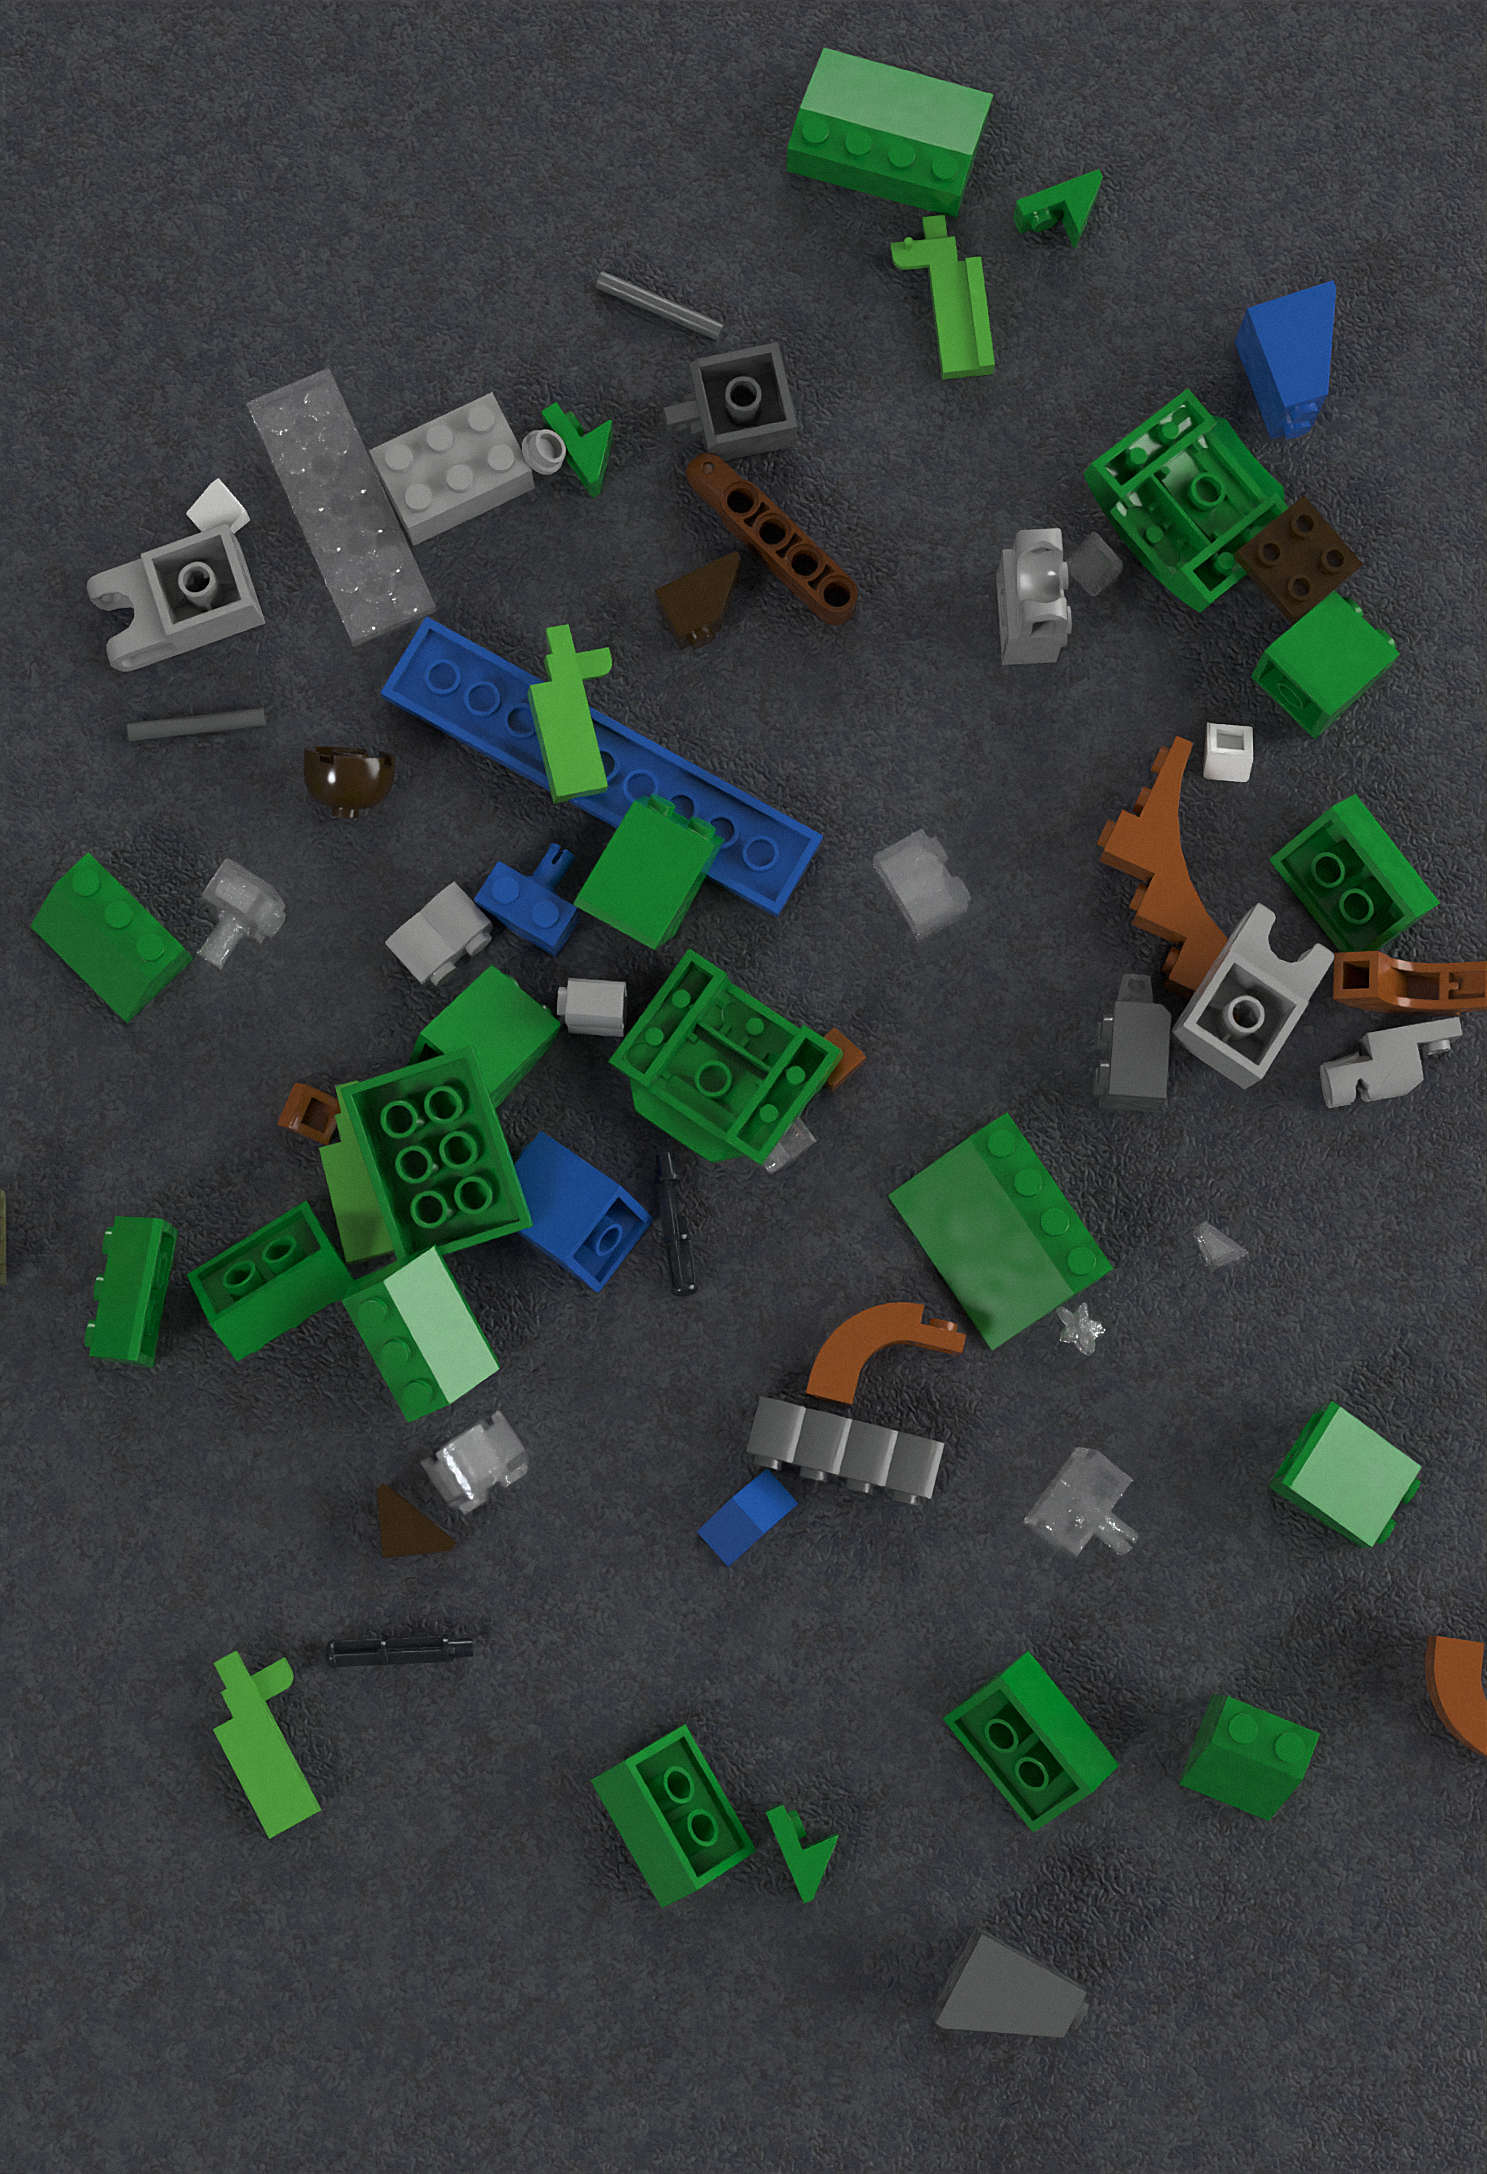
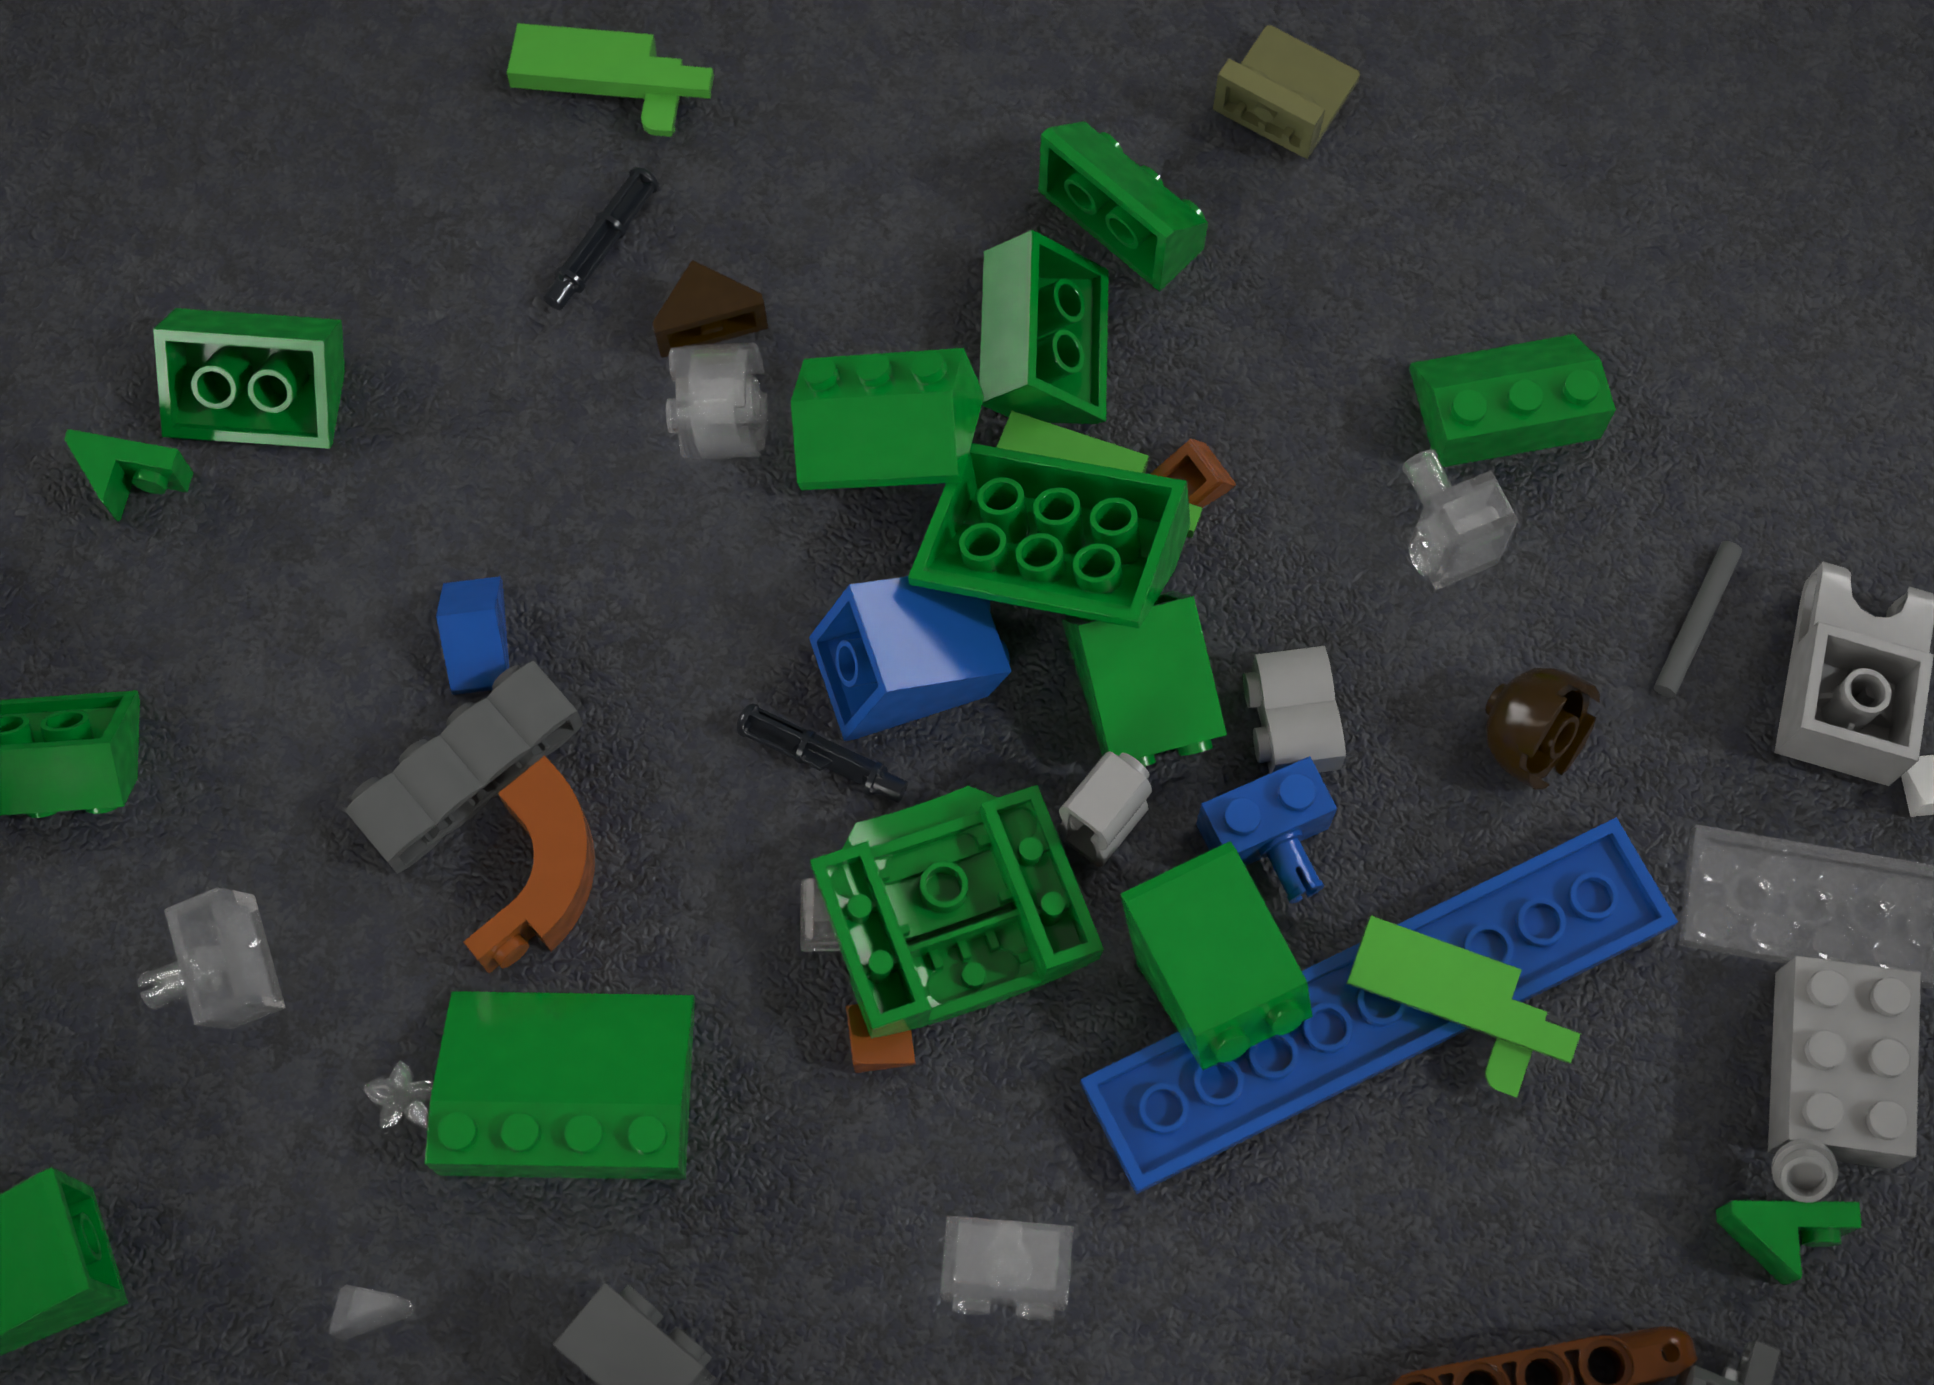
camera: 125 degrees right, 10 degrees down
(699, 601) = (1509, 1240): dark brown slope -> none

